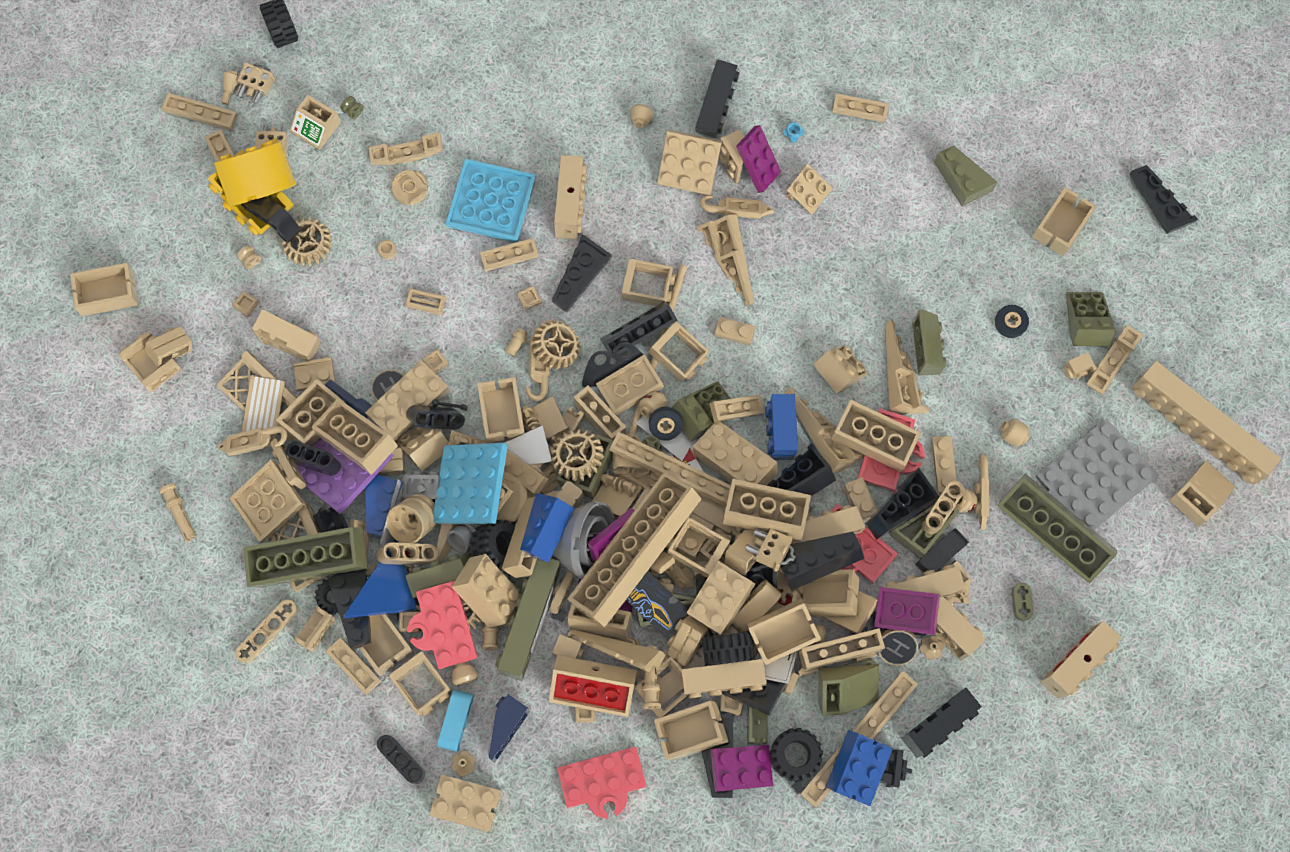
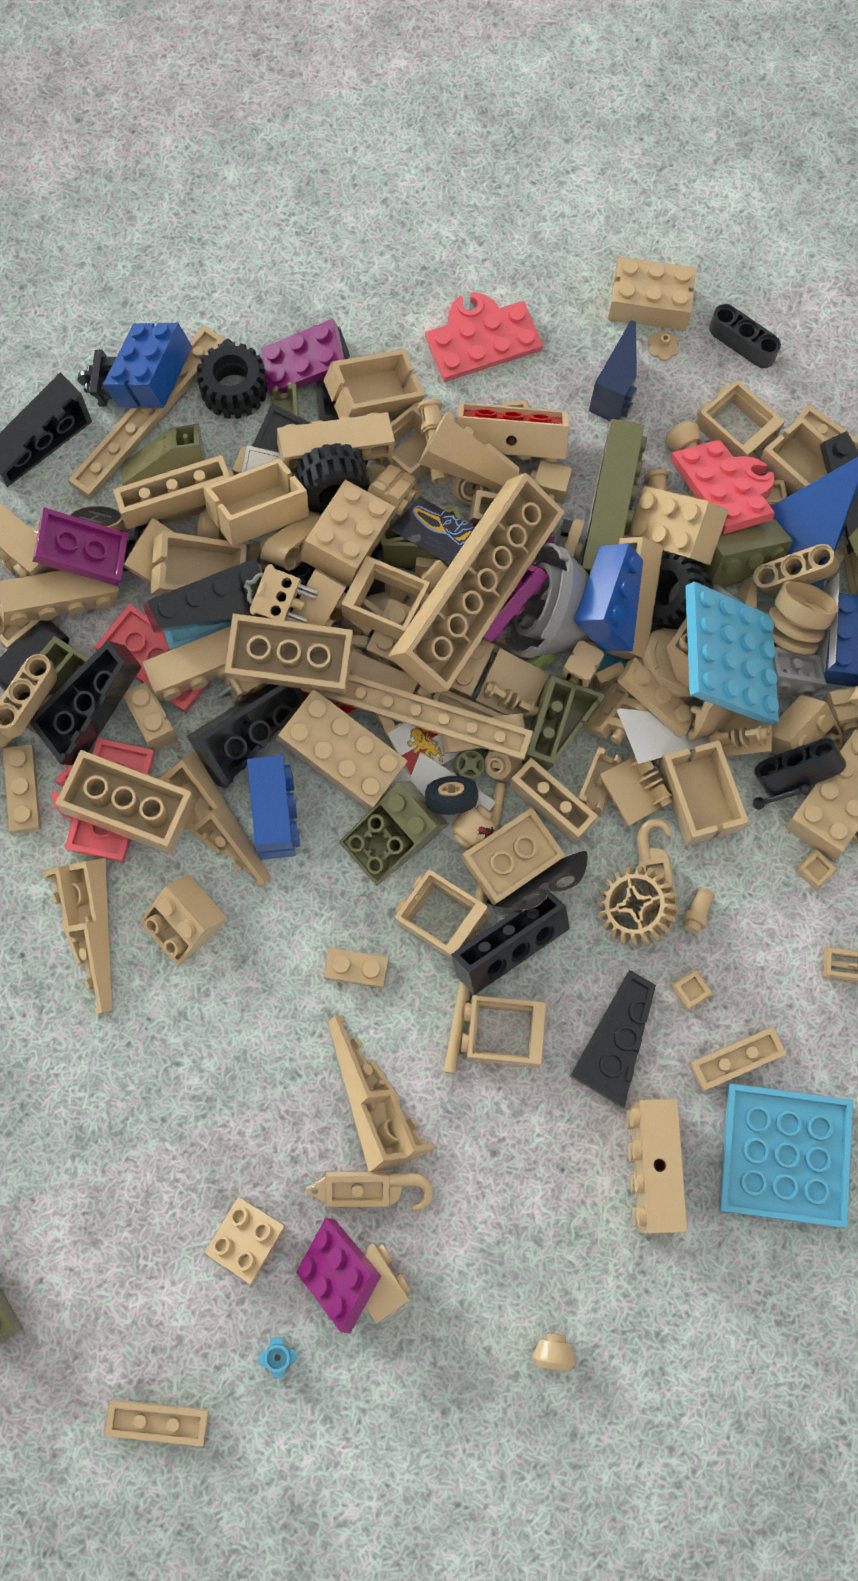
camera: 175 degrees right, 0 degrees up
(455, 720) = (684, 386): medium azure beam -> none
(585, 442) = (589, 728): tan gear -> none
(689, 162) = (459, 1258): tan plate -> none
(717, 98) = (422, 1403): black wedge -> none
(736, 408) = (344, 830): tan plate -> none
(928, 343) = (40, 971): olive slope -> none

